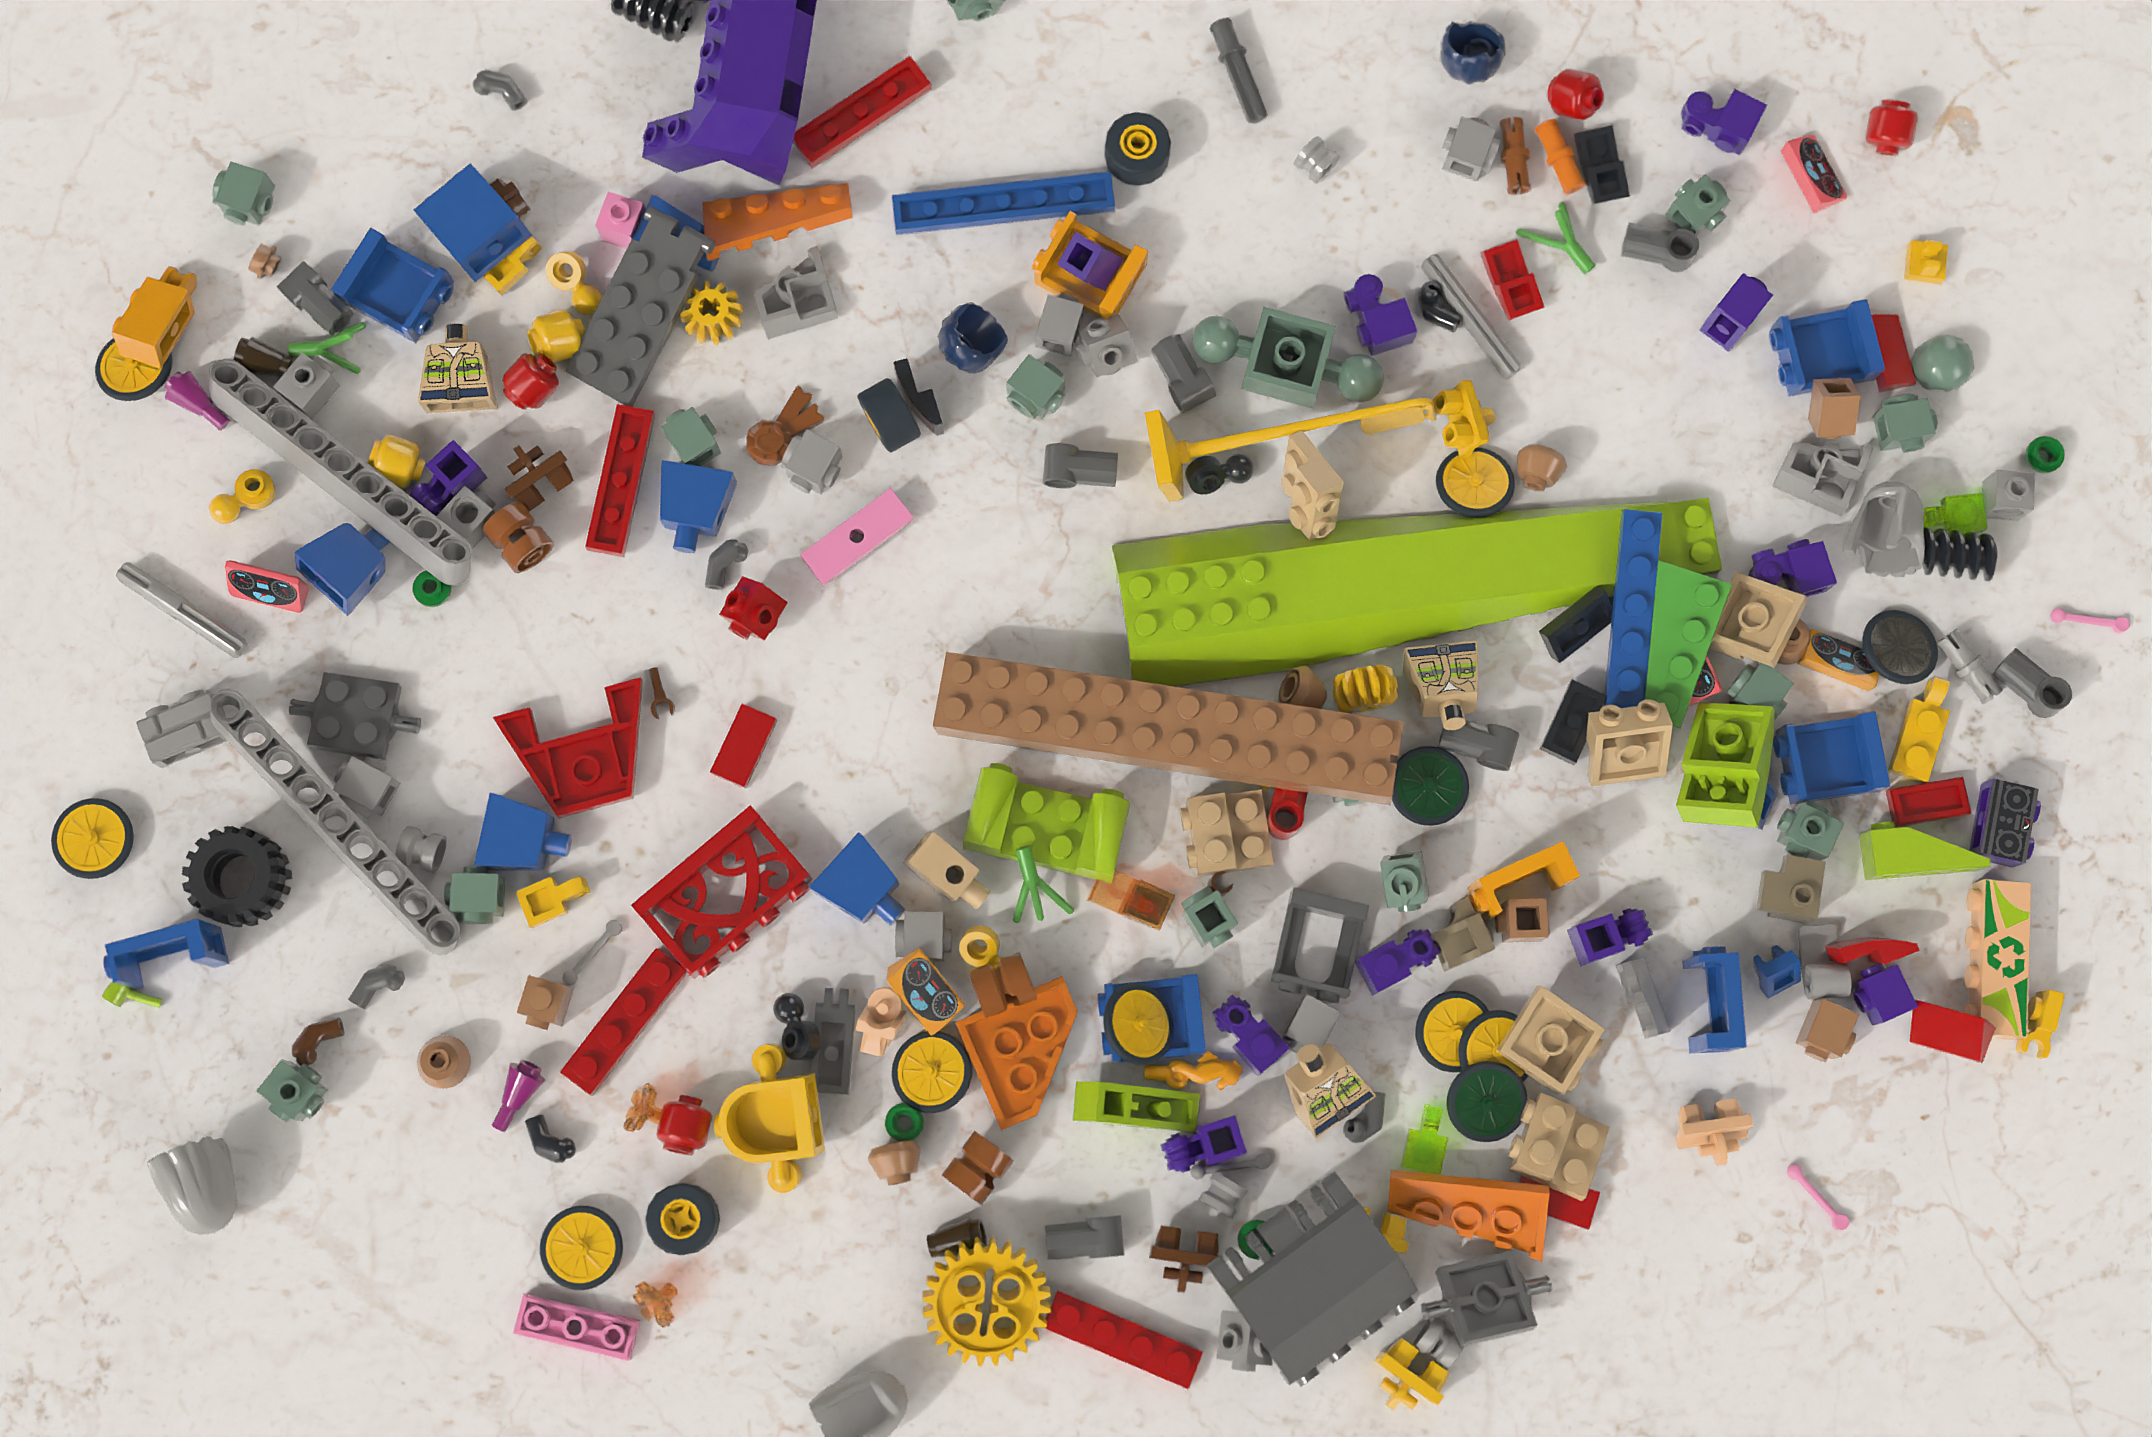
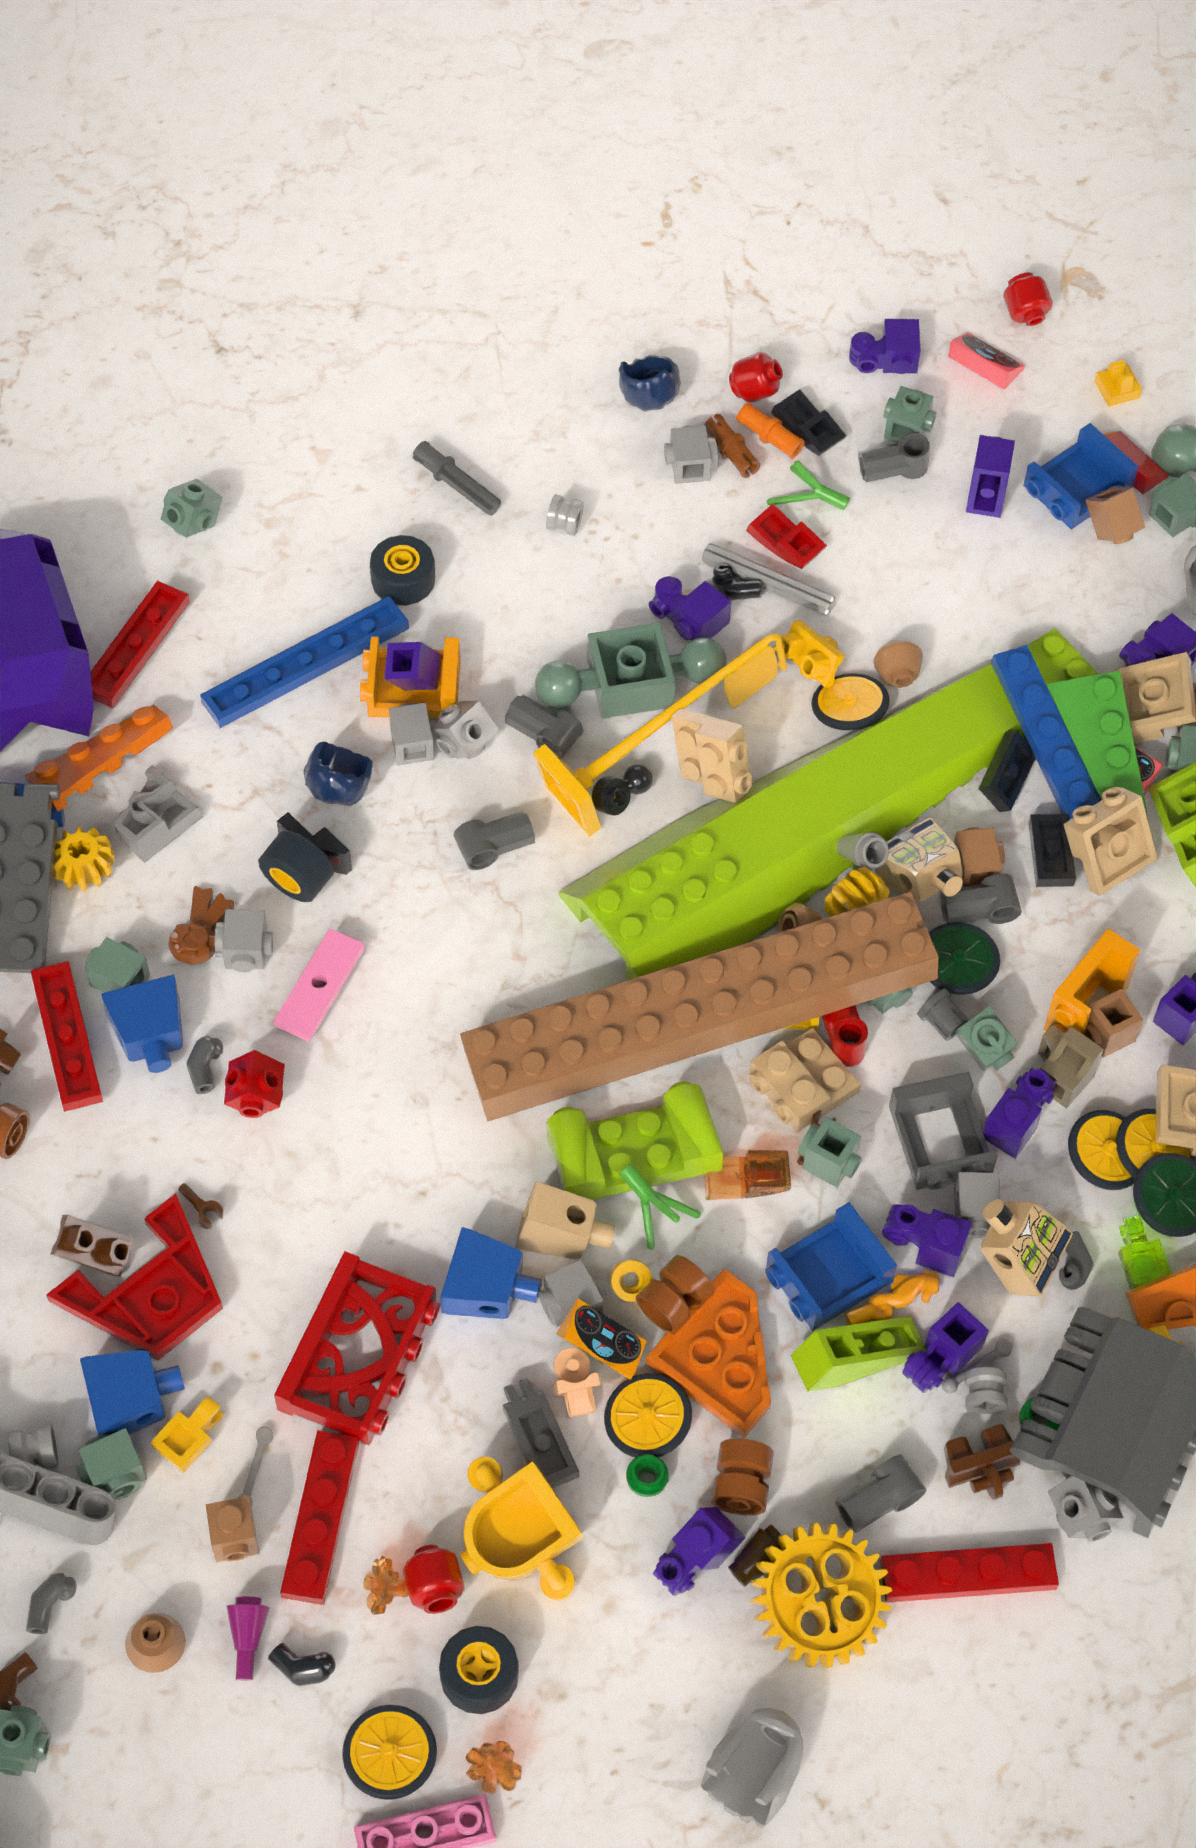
camera: 25 degrees left, 20 degrees down
(548, 693) = (92, 1246): none -> hips
(743, 746) = (306, 1213): red tile -> none
(799, 1037) = (479, 1425): black plate -> none
(895, 1161) = (659, 1510): medium nougat cone -> none
(909, 1210) = (700, 1545): none -> dark purple brick
(1036, 388) = (418, 792): sand green brick -> none
(1138, 1024) = (820, 1273): yellow wheel -> none
(1383, 835) = (943, 1014): none -> dark grey bush
(1395, 648) = (864, 849): none -> light grey cone
(1501, 697) = (979, 854): none -> medium nougat brick
(1822, 474) = (1136, 572): light grey slope -> none

